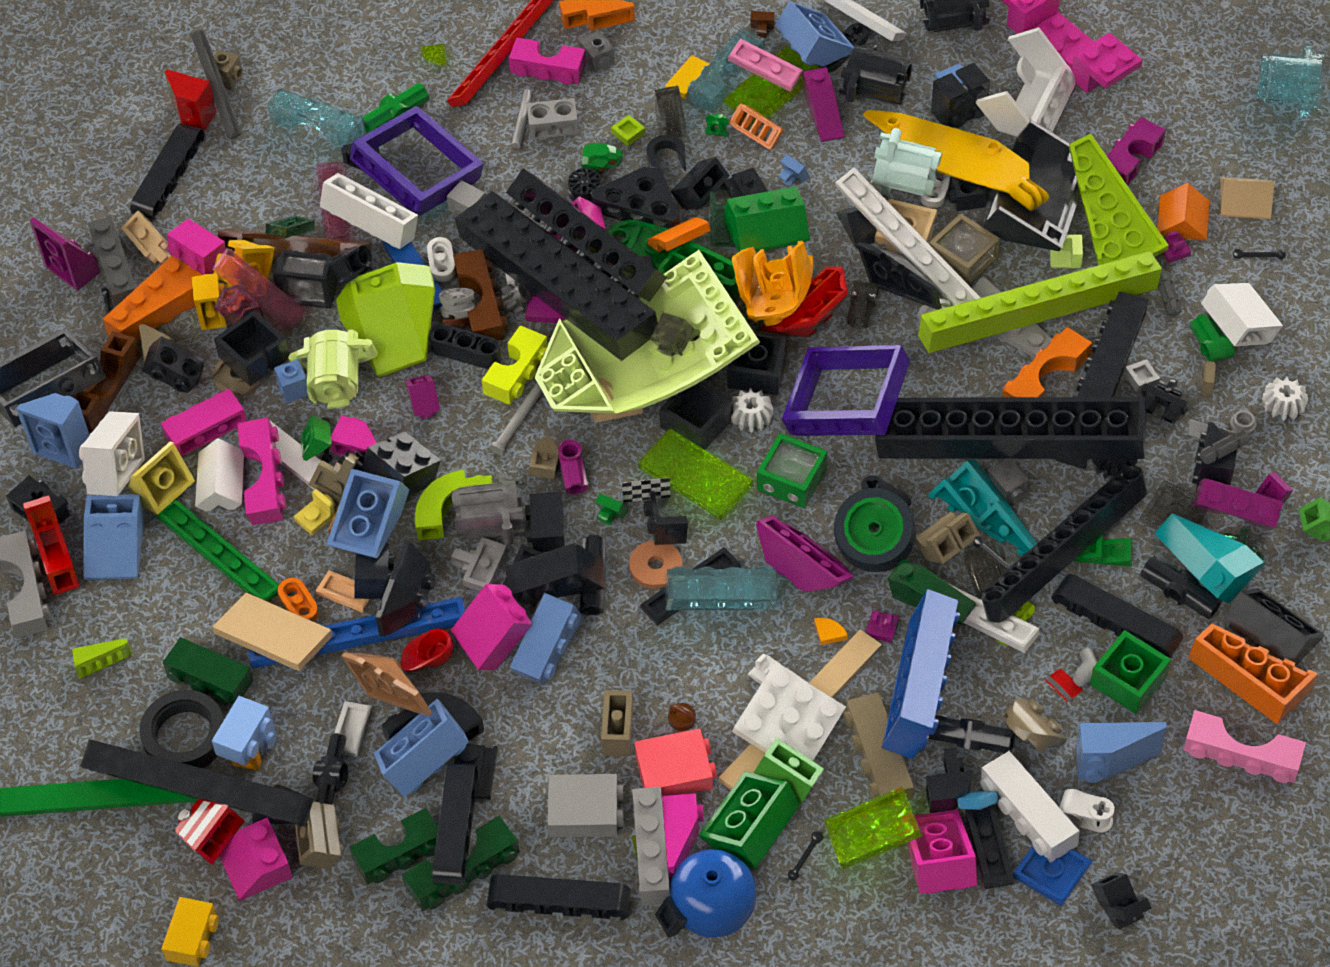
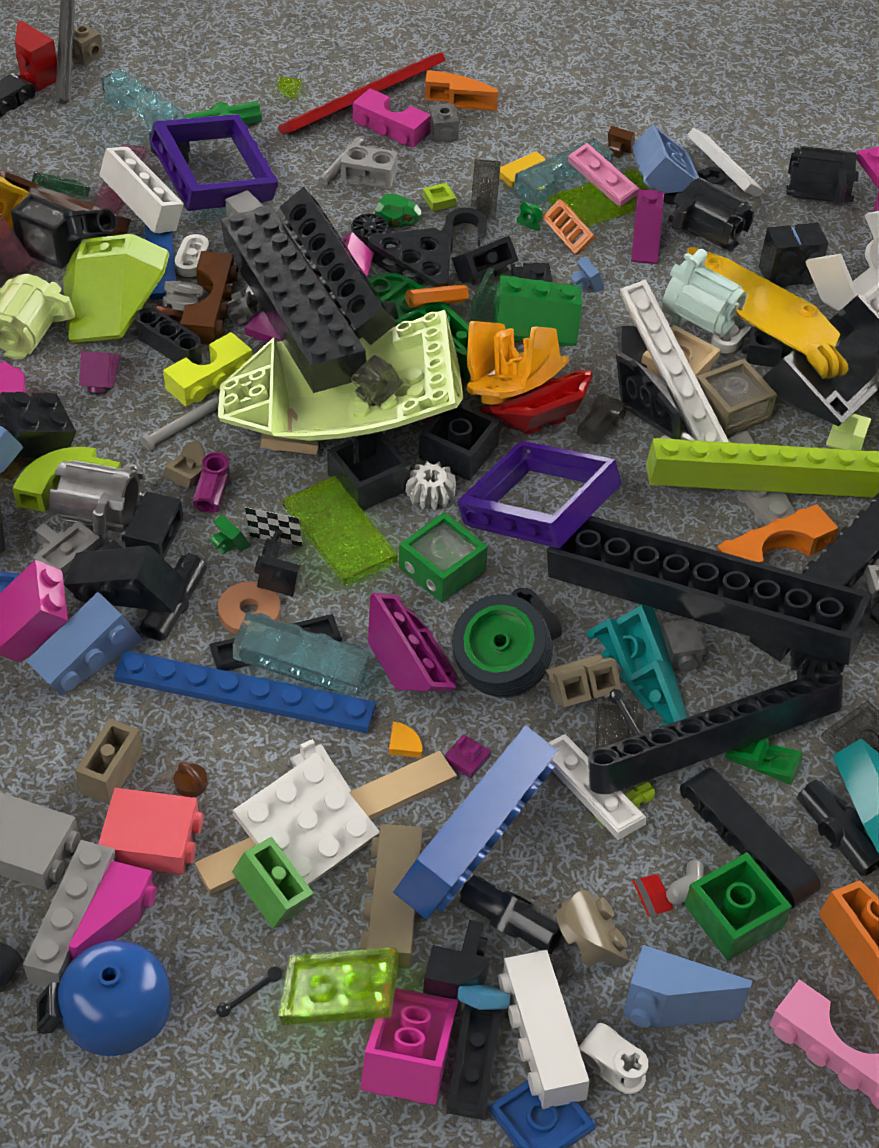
camera: 15 degrees right, 5 degrees down
(686, 633) = (245, 691): none -> blue plate
(751, 817) = (203, 924): green slope -> none
(910, 582) = (519, 709): dark green slope -> none

